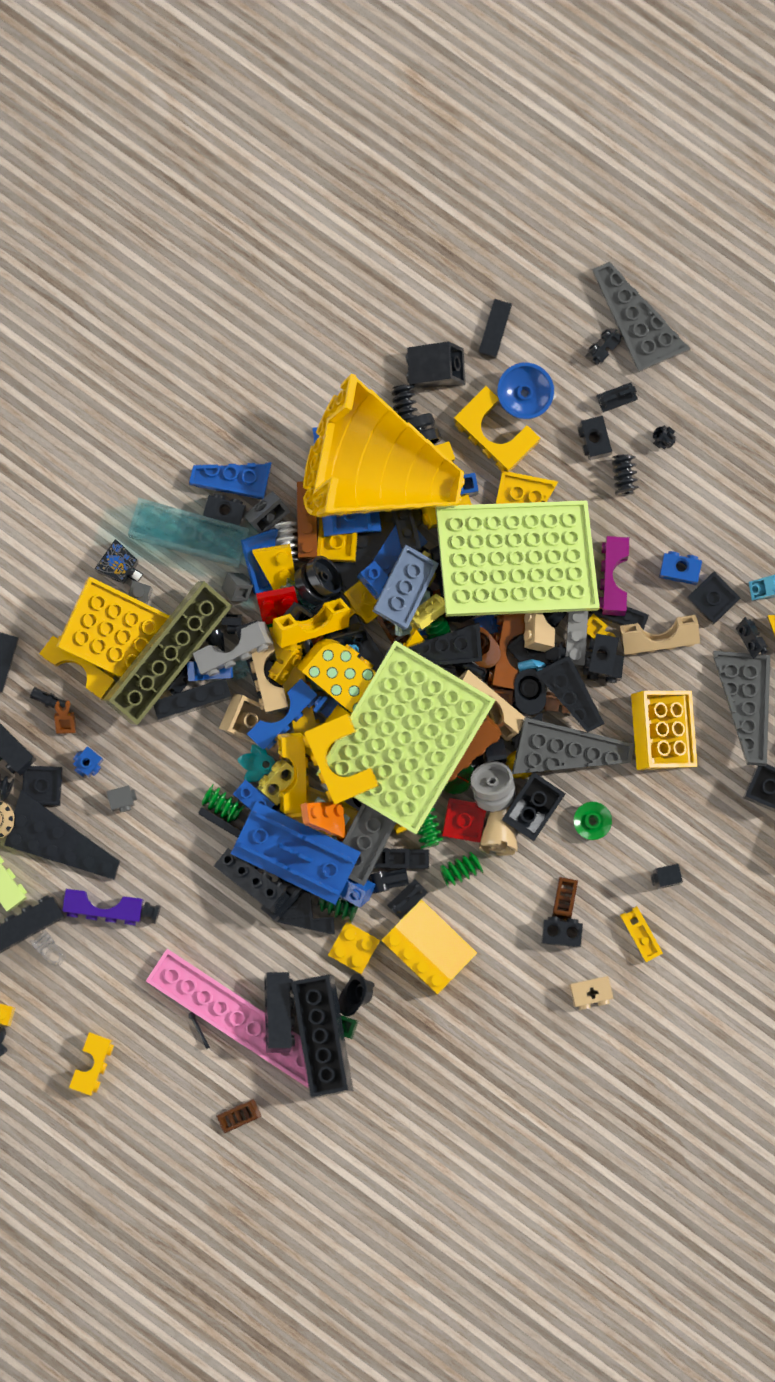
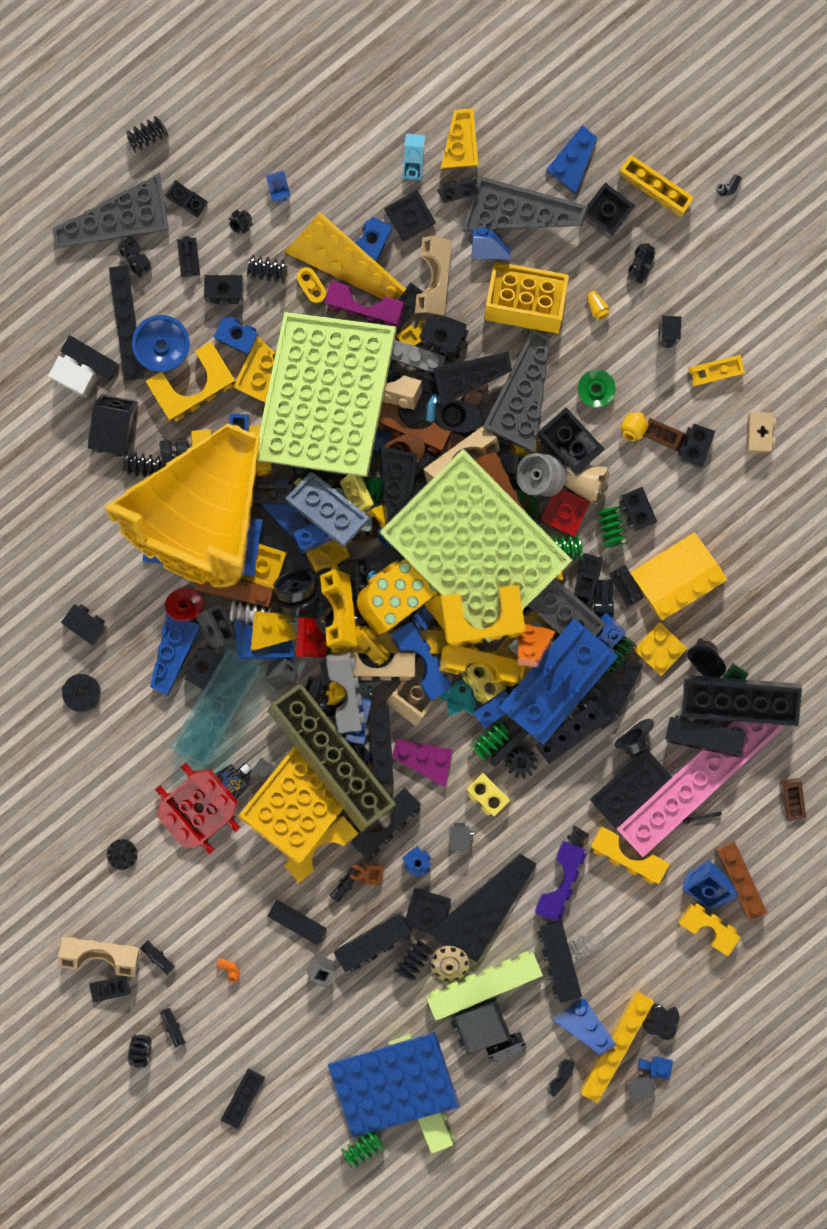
camera: 75 degrees left, 5 degrees up
(26, 489) = (131, 855): none -> black gear
(89, 559) = (218, 805): none -> red piece
(132, 1053) = (709, 886): none -> blue slope
(138, 736) = (369, 841): none -> black arch
(146, 1083) = (741, 880): none -> dark orange arch
(150, 942) = (650, 867): none -> yellow arch
(173, 816) = (491, 791): none -> light yellow brick
(182, 402) = (70, 691): none -> black plate
(188, 749) = (424, 758): none -> magenta wing
(208, 833) = (528, 762): none -> black gear
(210, 952) = (630, 788): none -> black plate
(229, 641) = (336, 693): none -> yellow plate
(237, 388) = (84, 624): none -> black brick
(258, 945) = (635, 739): none -> black piece
(284, 472) = (183, 598): none -> red dish
(471, 317) = (70, 375): none -> white brick
(487, 894) = (643, 507): none -> black brick
(541, 352) = (125, 320): none -> black plate
(556, 450) = (226, 329): none -> blue brick
(565, 866) = (634, 426): none -> yellow head
(620, 521) = (312, 285): none -> yellow plate
(656, 536) = (336, 254): none -> yellow wing
(672, 380) = (185, 198): none -> black slope
(672, 803) = (598, 306): none -> yellow cone
(704, 680) = (488, 245): none -> blue slope
(707, 464) = (278, 186): none -> blue bracket
(720, 832) = (637, 270): none -> black hinge
(724, 326) = (146, 133): none -> black piece

